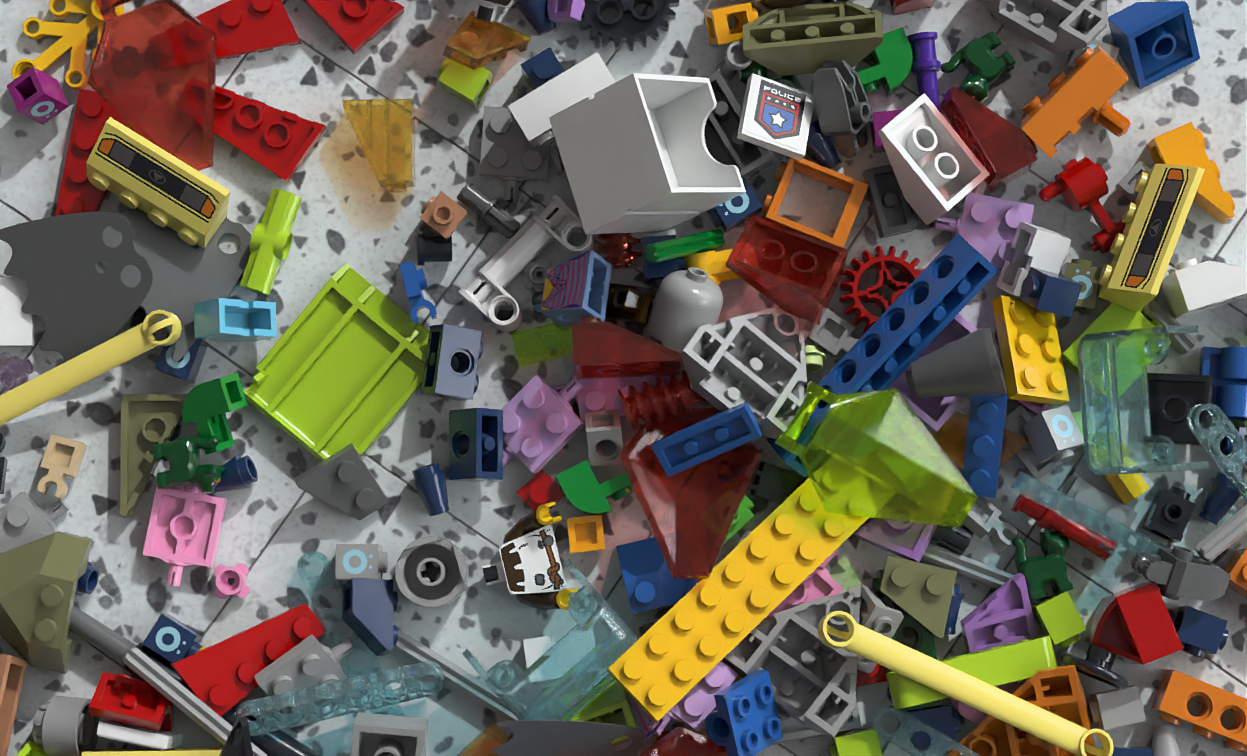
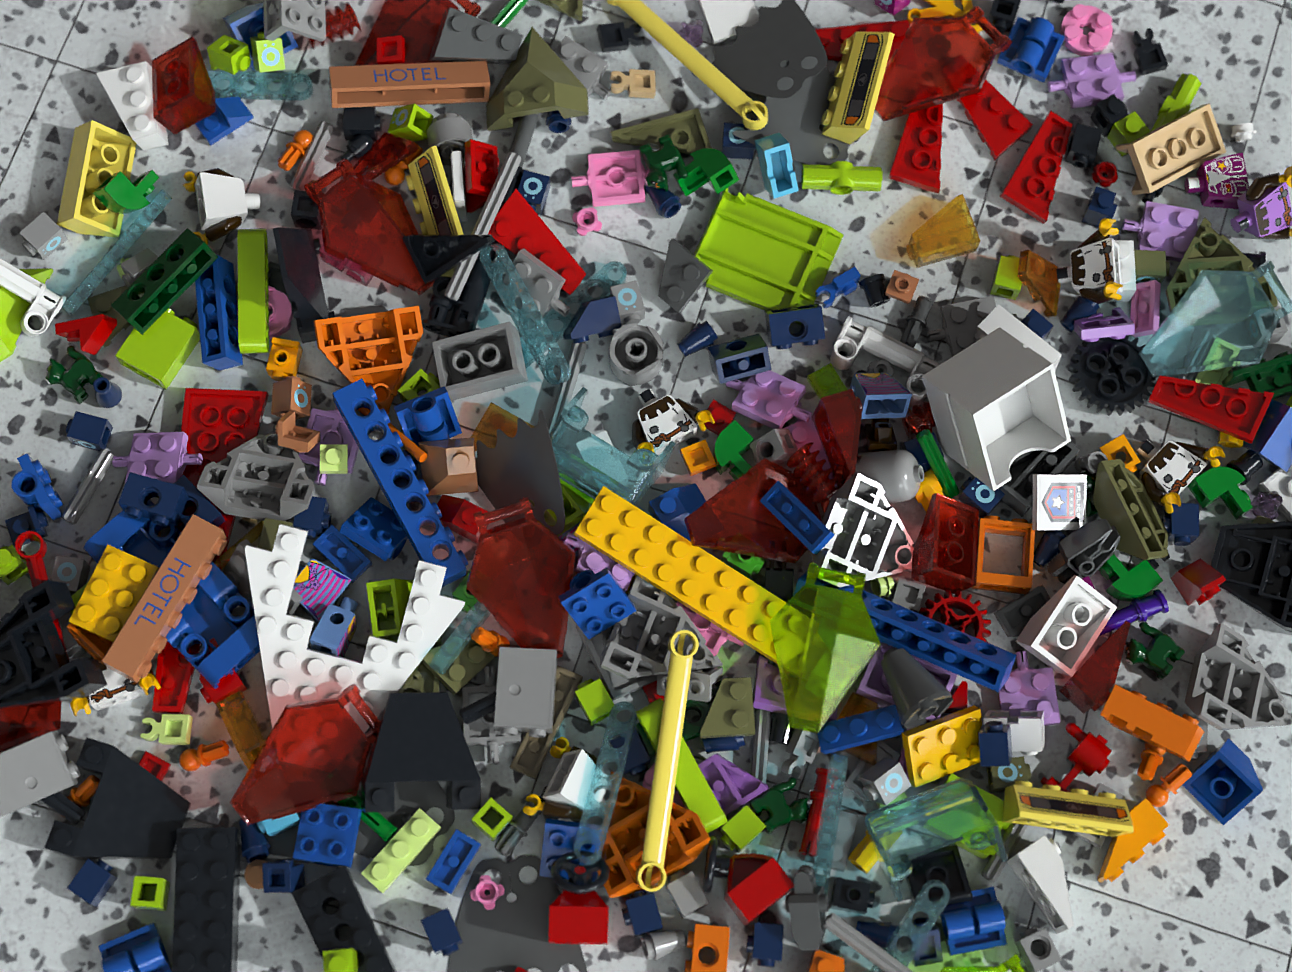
camera: 65 degrees right, 10 degrees down
(976, 314) = (959, 698): none -> red slope
(1145, 120) = (1158, 794): none -> orange axle

